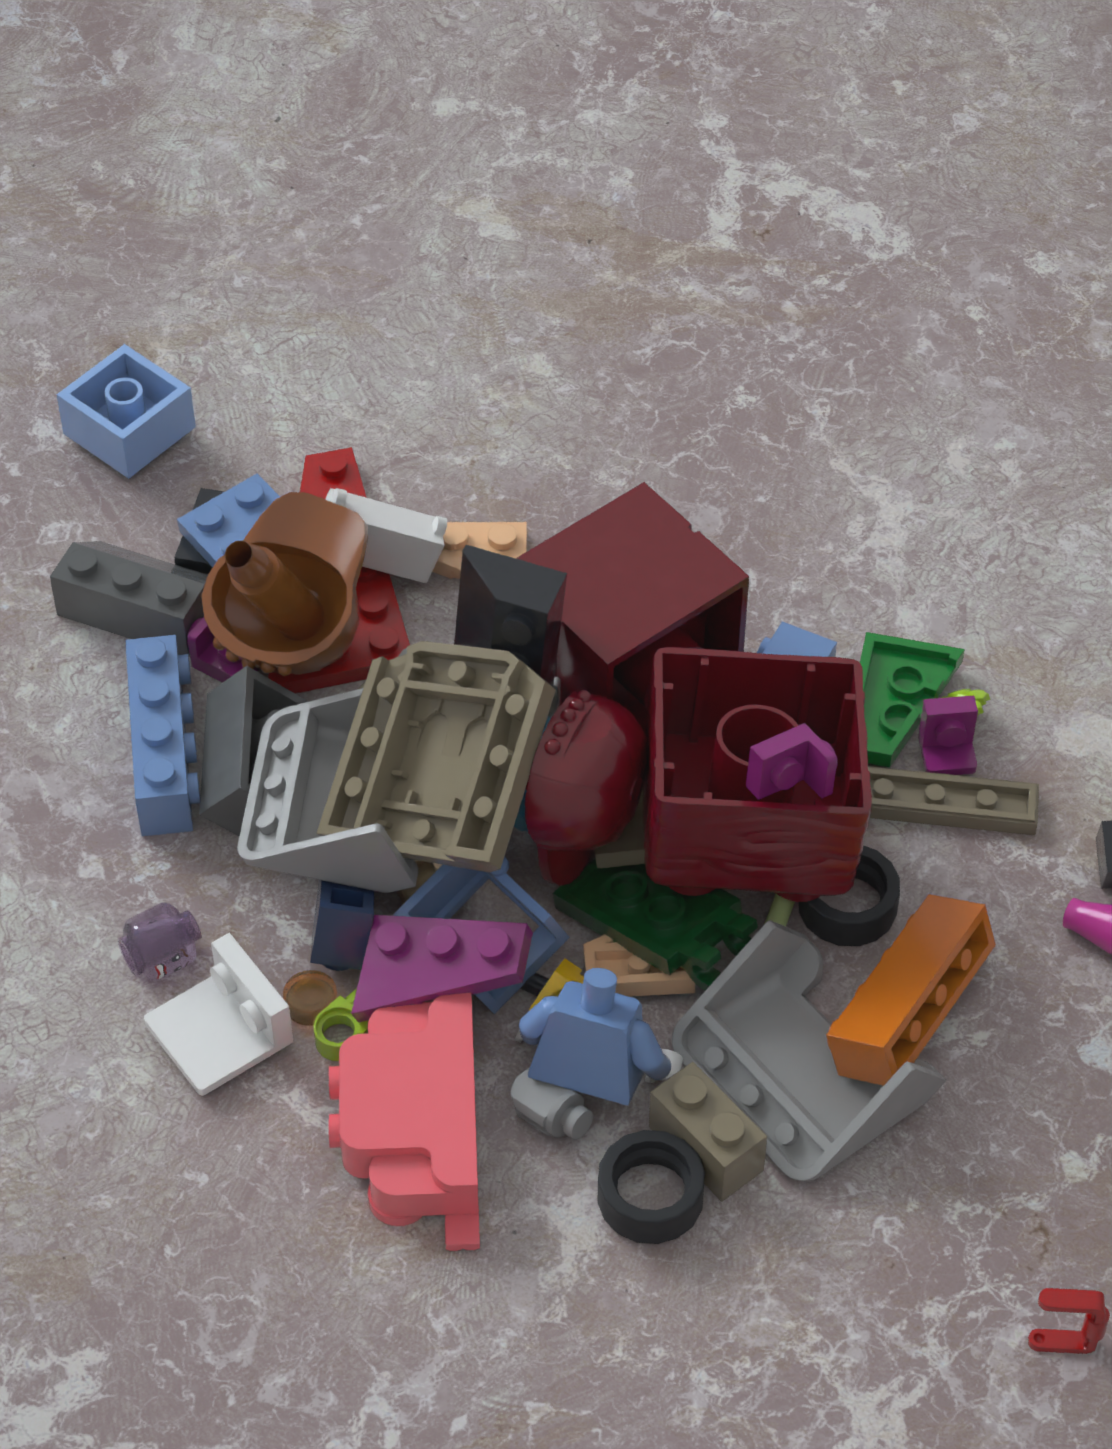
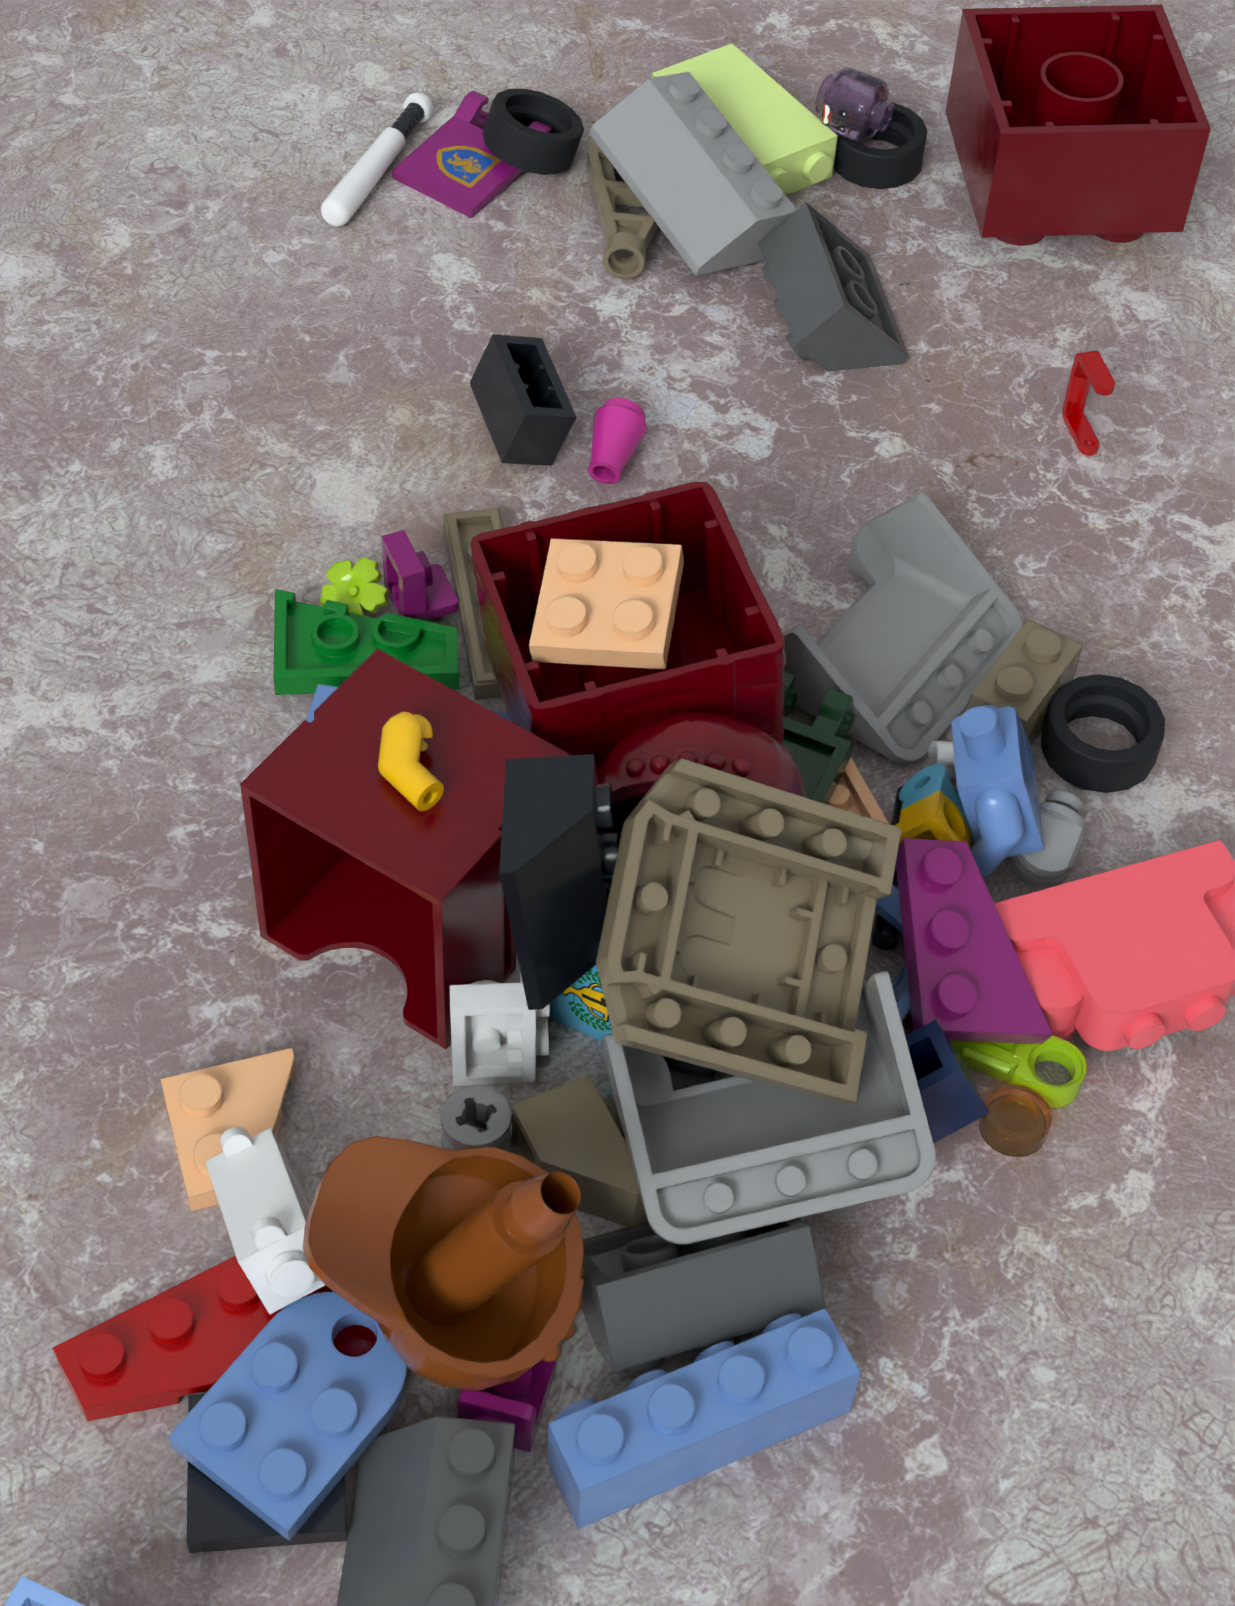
camera: 110 degrees left, 0 degrees up
(159, 941) = (1027, 1304): clear purple head -> none
(222, 1021) = (1109, 1193): white bracket -> none
(620, 556) = (400, 757): none -> yellow arm
(744, 707) = (607, 603): none -> light nougat plate
(790, 759) = (703, 531): magenta bracket -> none
(911, 989) = (819, 555): orange brick -> none

